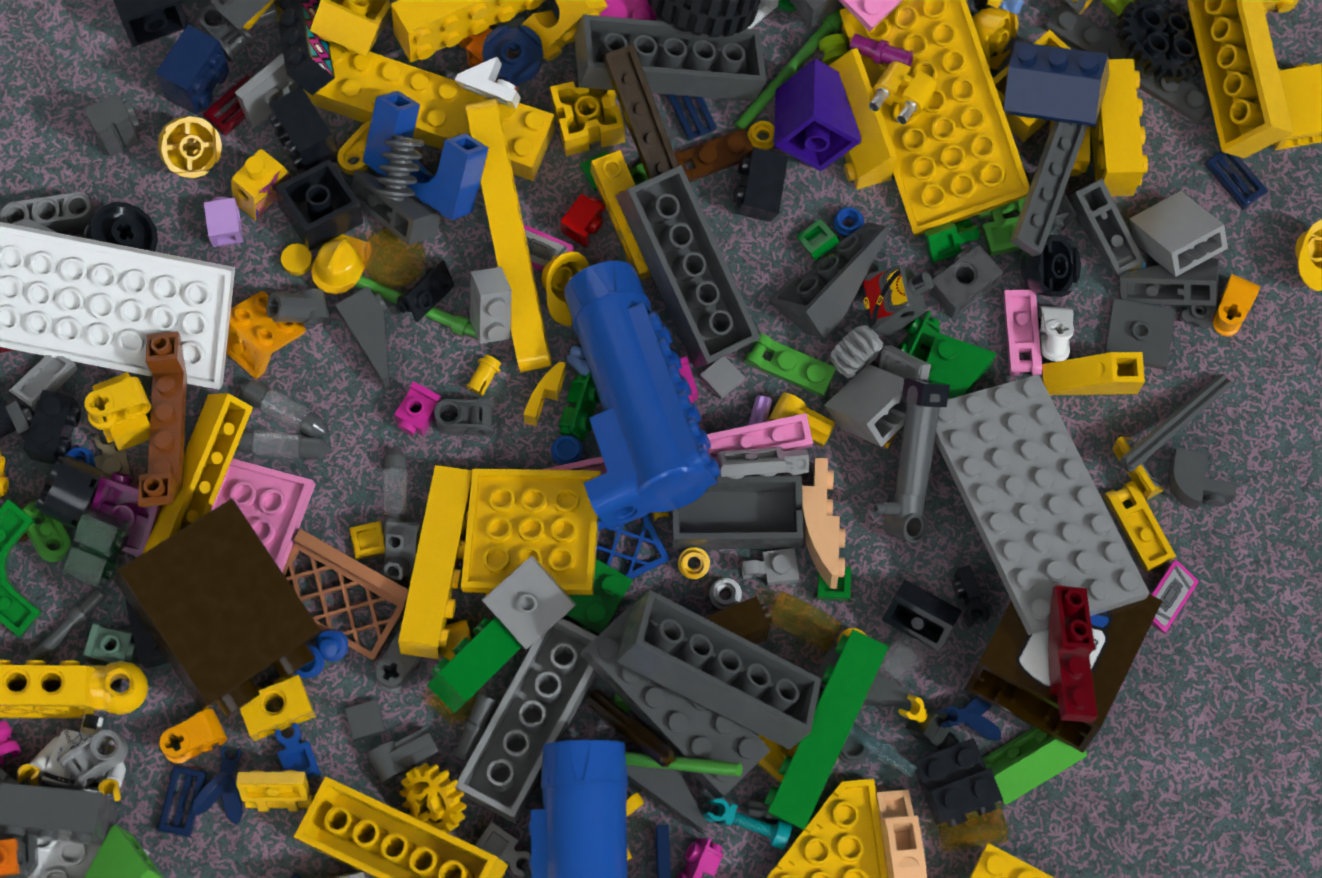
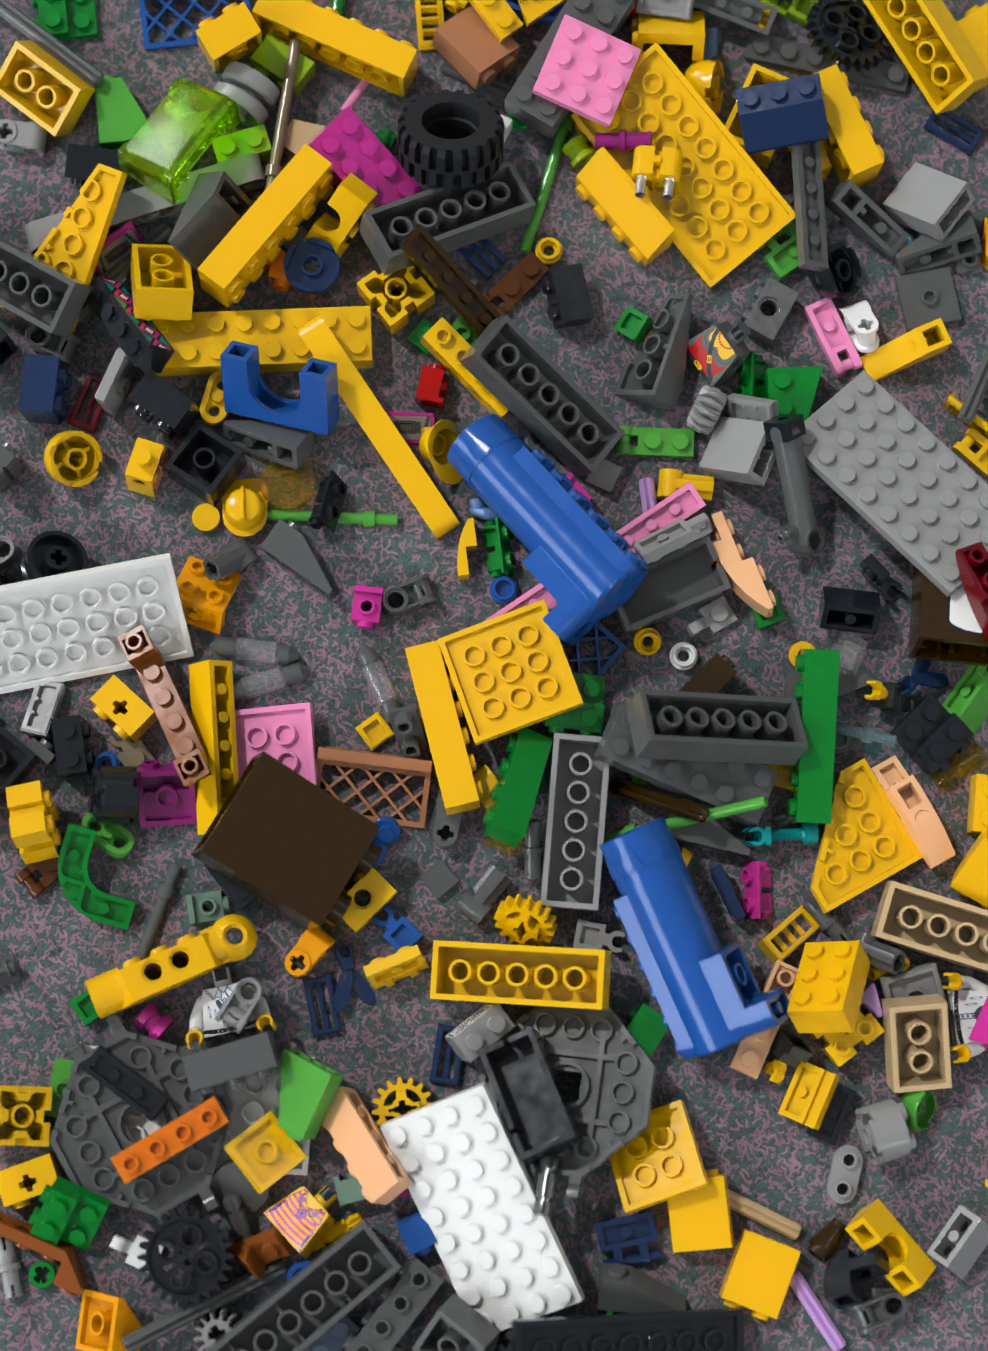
camera: 25 degrees left, 10 degrees up
(100, 541) = (158, 831): clear green piece -> none
(119, 403) = (123, 703): yellow piece -> none
(223, 221) = (130, 510): lavender brick -> none
(399, 167) = (267, 408): dark grey piece -> none
(482, 79) = (299, 302): white slope -> none
(483, 375) = (407, 553): yellow pin -> none
(490, 305) = (391, 495): light grey brick -> none
(529, 602) = (536, 733): light grey plate -> none
(804, 621) = (757, 652): clear yellow slope -> none
(814, 116) = (588, 219): dark purple slope -> none
(847, 213) = (651, 290): blue plate -> none
(946, 239) = (739, 280): green plate -> none

